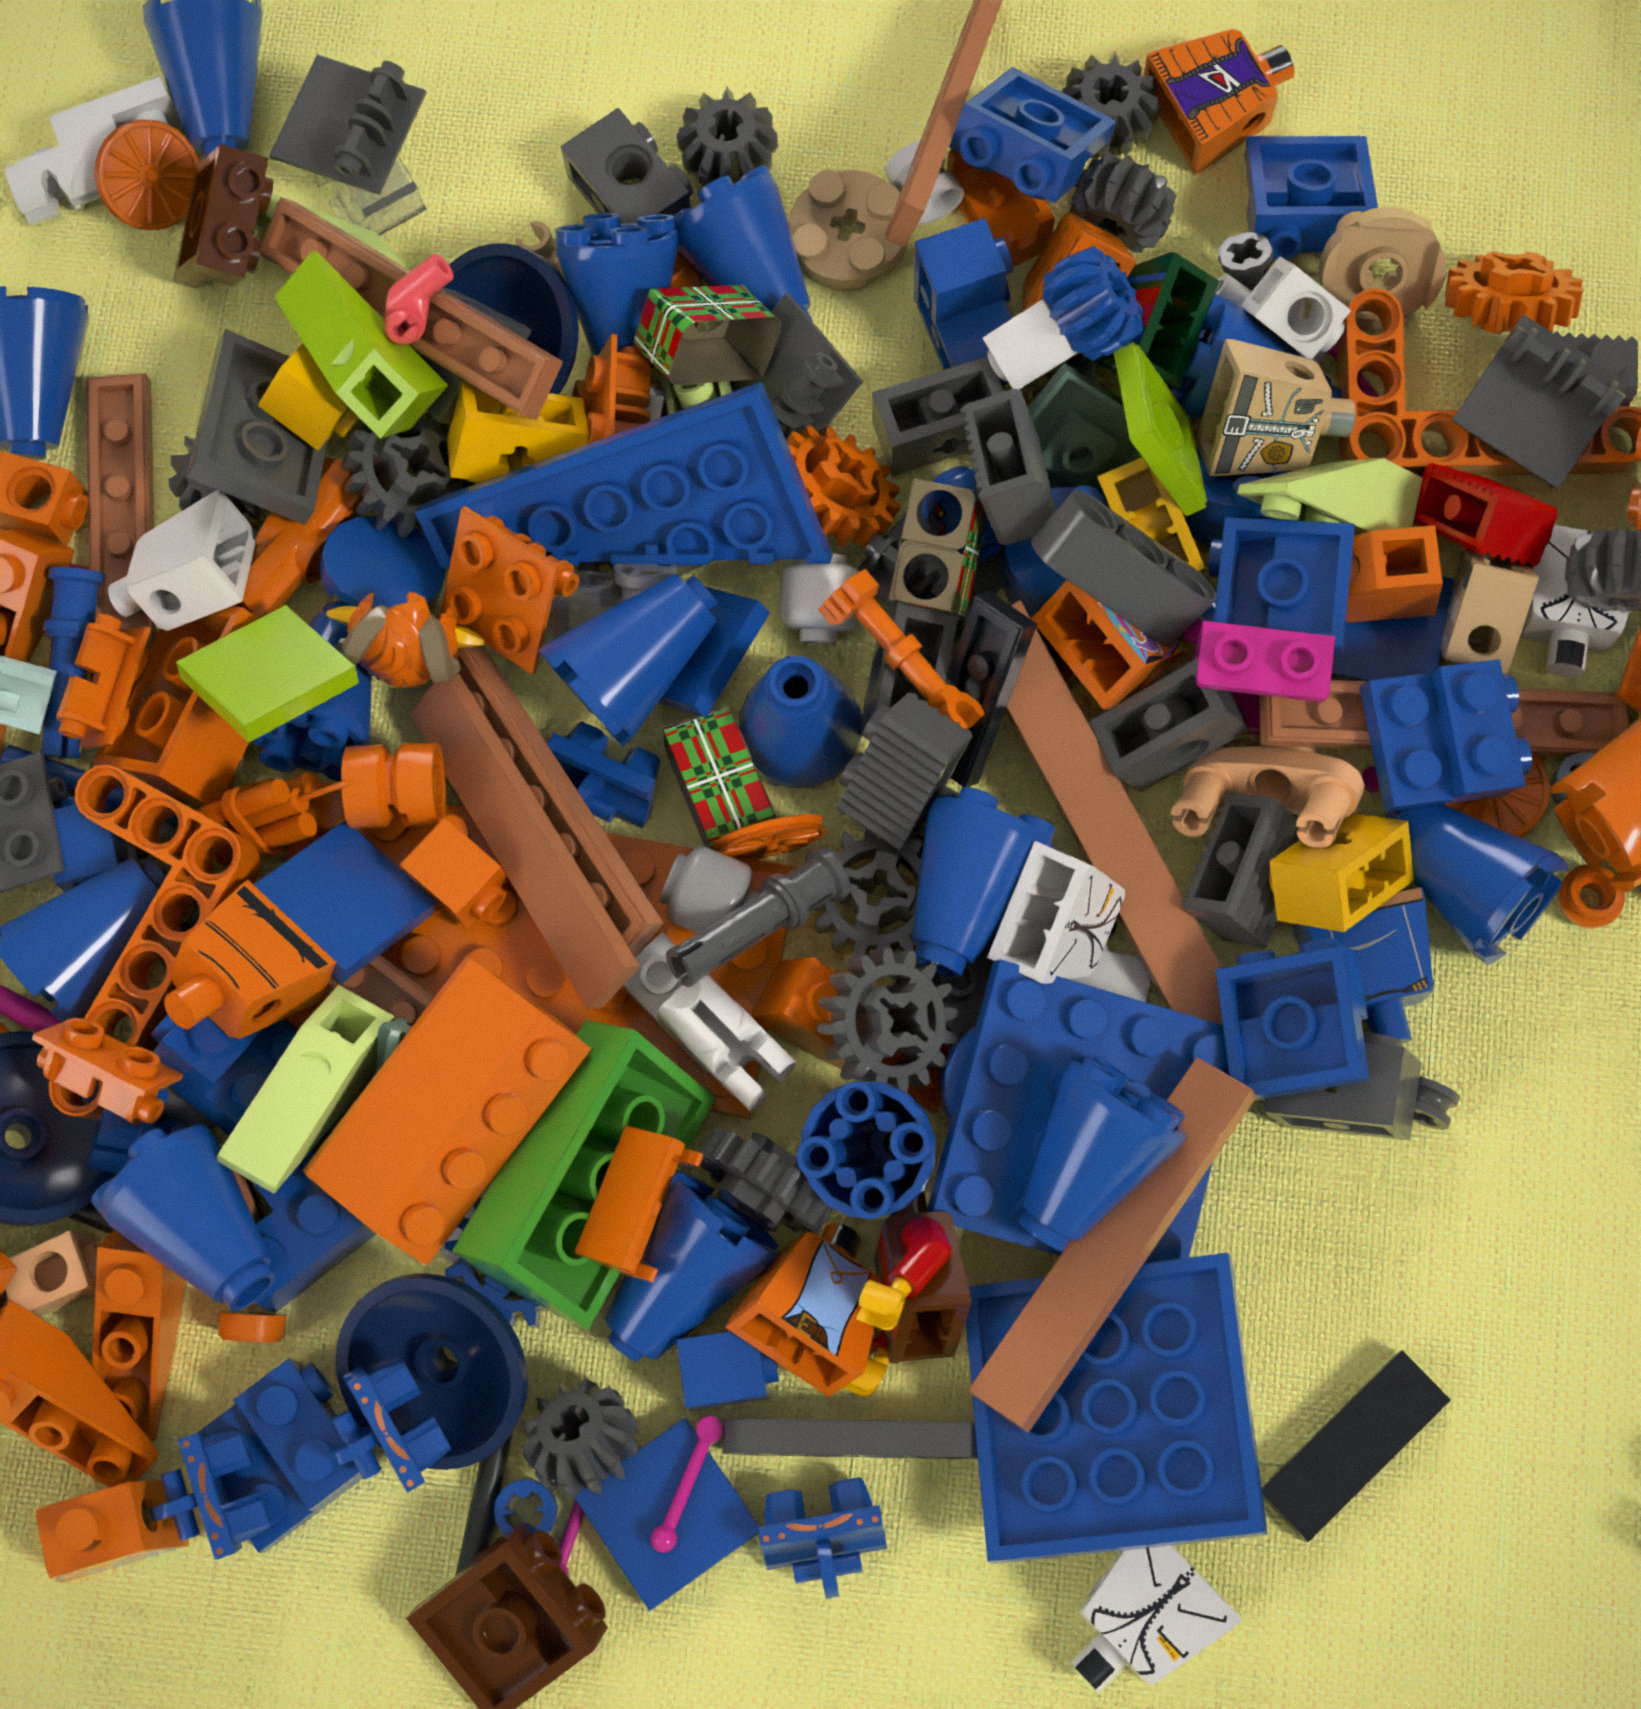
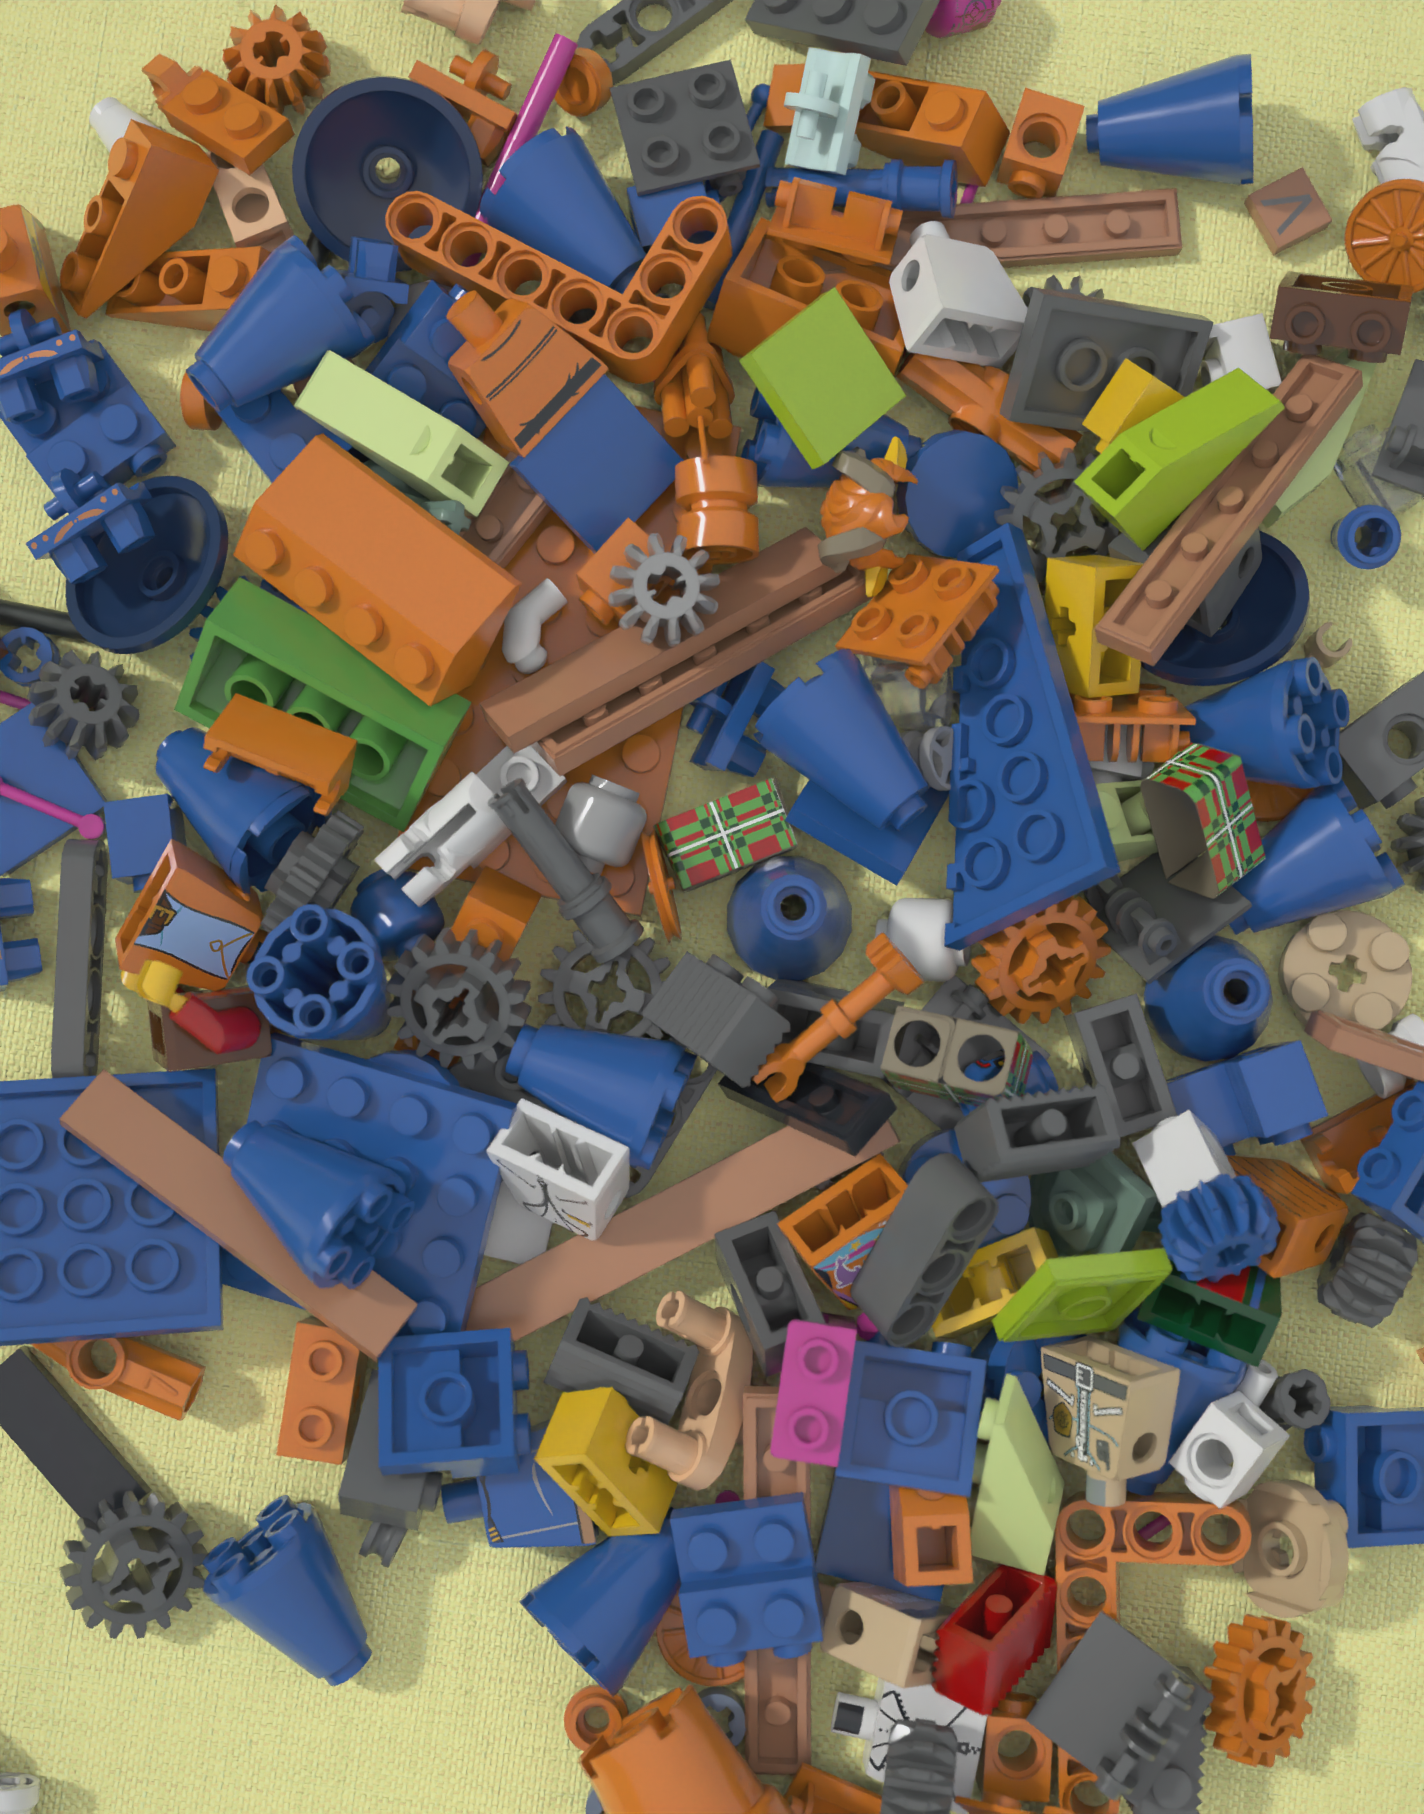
camera: 85 degrees right, 10 degrees up
(81, 1054) = (430, 233): orange hinge -> none
(115, 281) = (1288, 211): none -> nougat tile
(256, 314) = (1242, 345): none -> white brick
(410, 299) = (1225, 506): coral arm -> none
(436, 204) = (1378, 539): none -> blue cone
(464, 799) = (650, 570): none -> light grey gear
(525, 975) = (524, 624): none -> white arm
(789, 1104) = (392, 915): none -> blue head
(877, 329) = (1190, 1007): none -> blue cone
(1282, 1356) = (140, 1374): none -> orange piece
(1288, 1165) = (321, 1395): none -> orange brick
(1475, 1354) = (105, 1581): none -> dark grey gear
(1487, 1192) = (291, 1591): none -> blue cone
(1600, 489) = (1018, 1777): none -> orange brick

